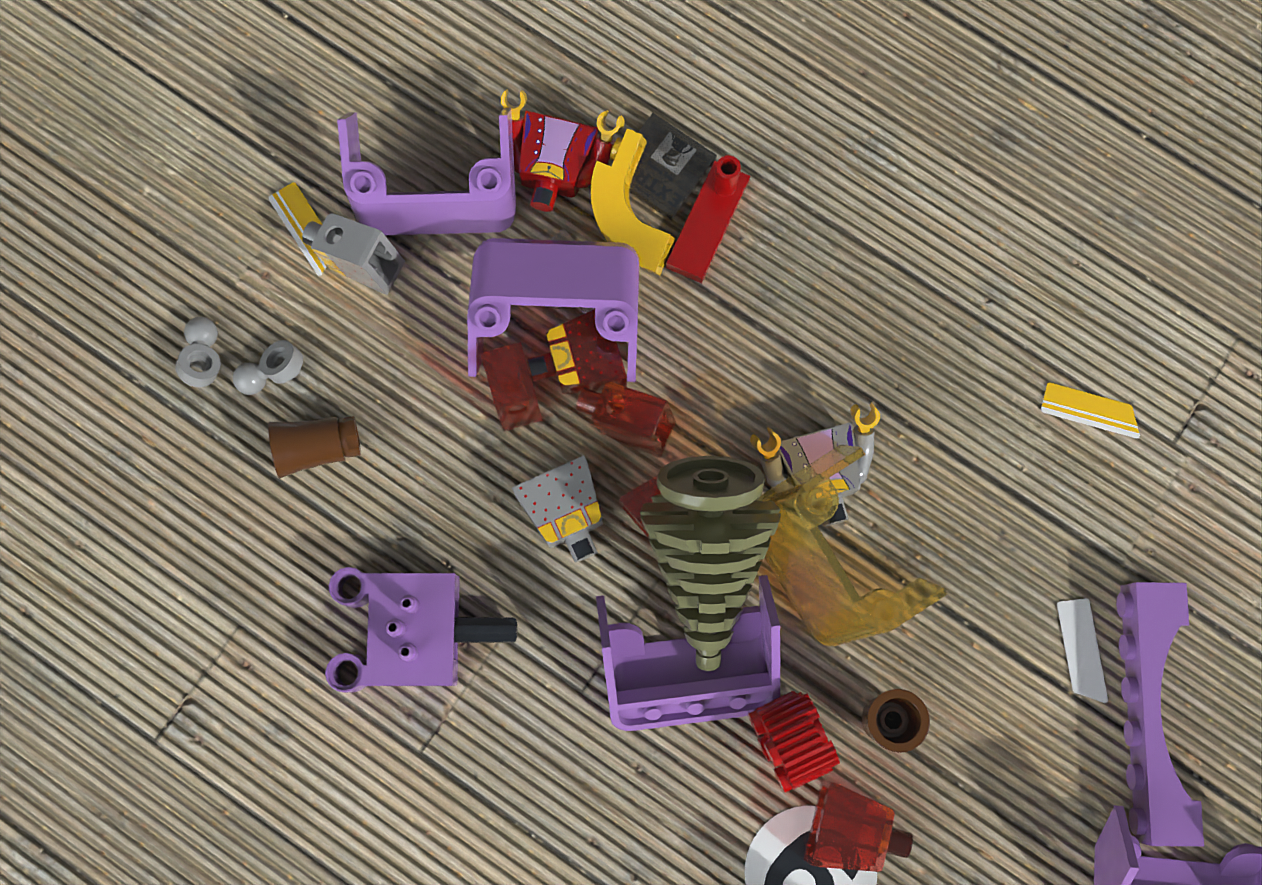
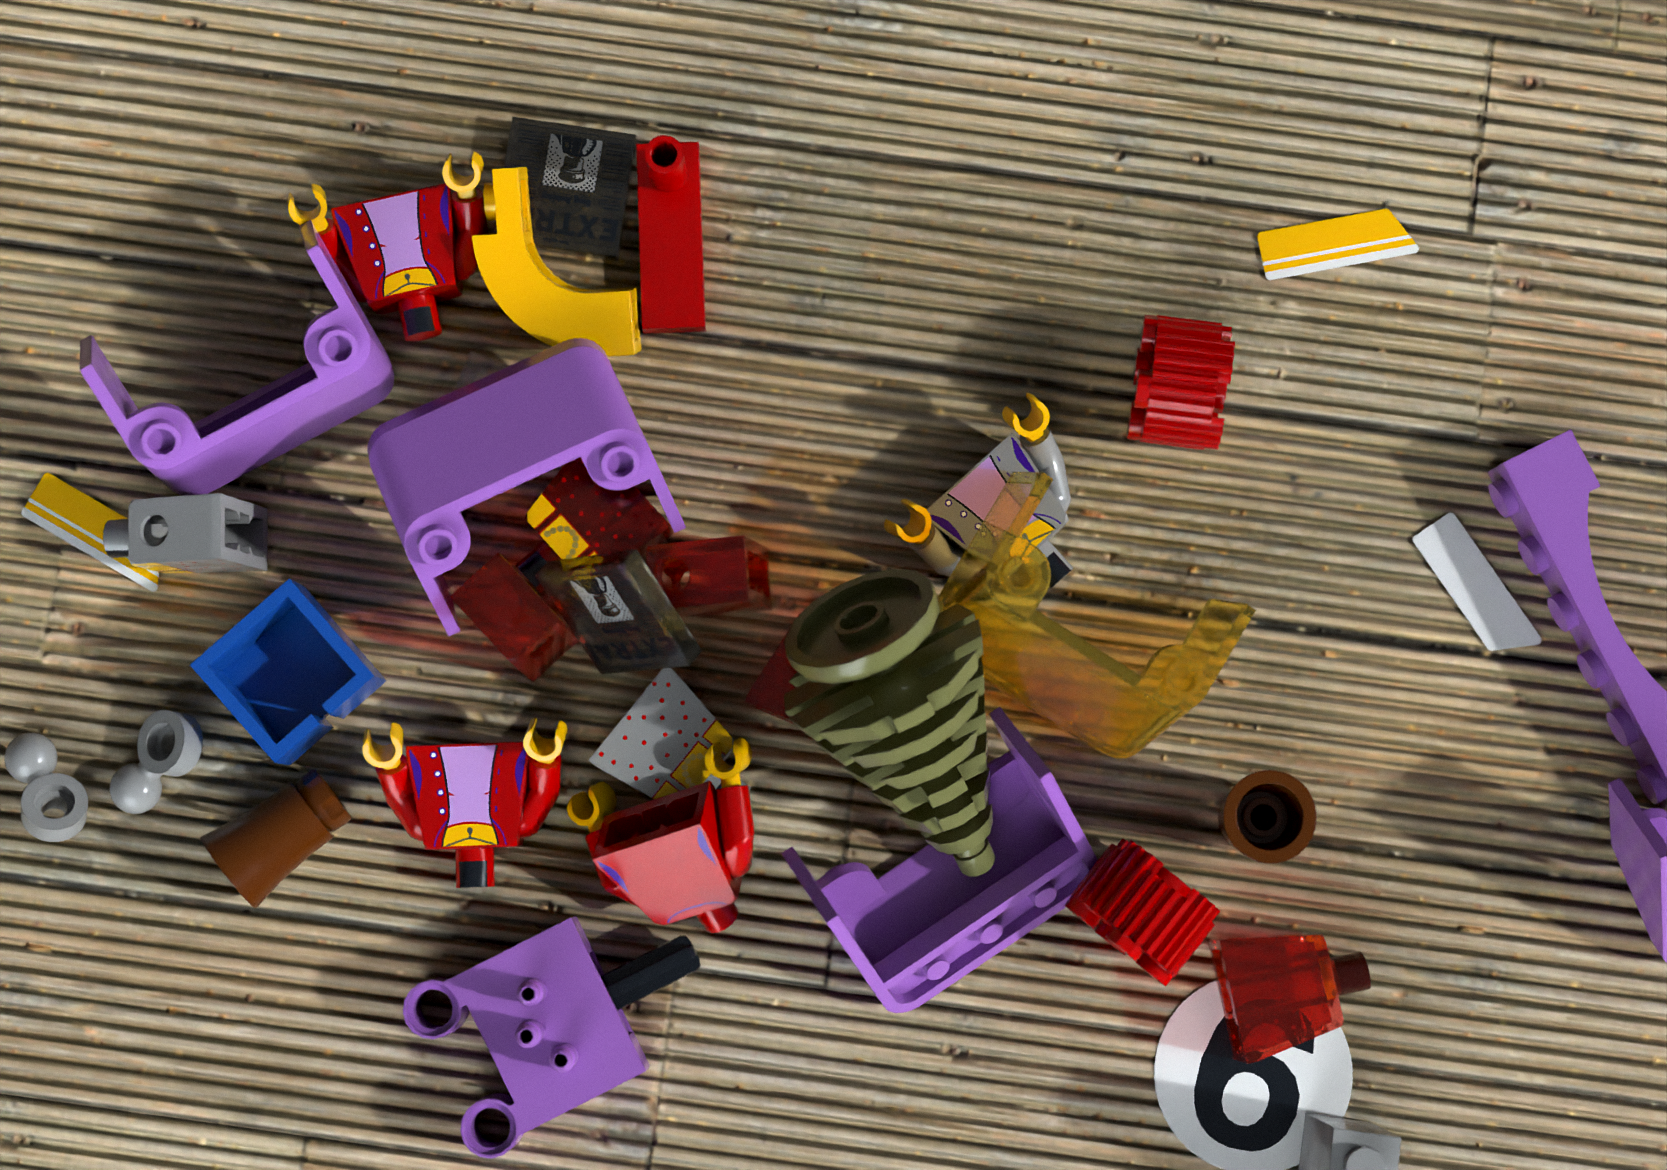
camera: 25 degrees left, 5 degrees up
(367, 353) = (287, 672): none -> blue piece
(434, 474) = (470, 794): none -> torso
(537, 565) = (679, 850): none -> red torso
(572, 411) = (619, 612): none -> clear smoke tile
(964, 441) = (1181, 382): none -> red brick

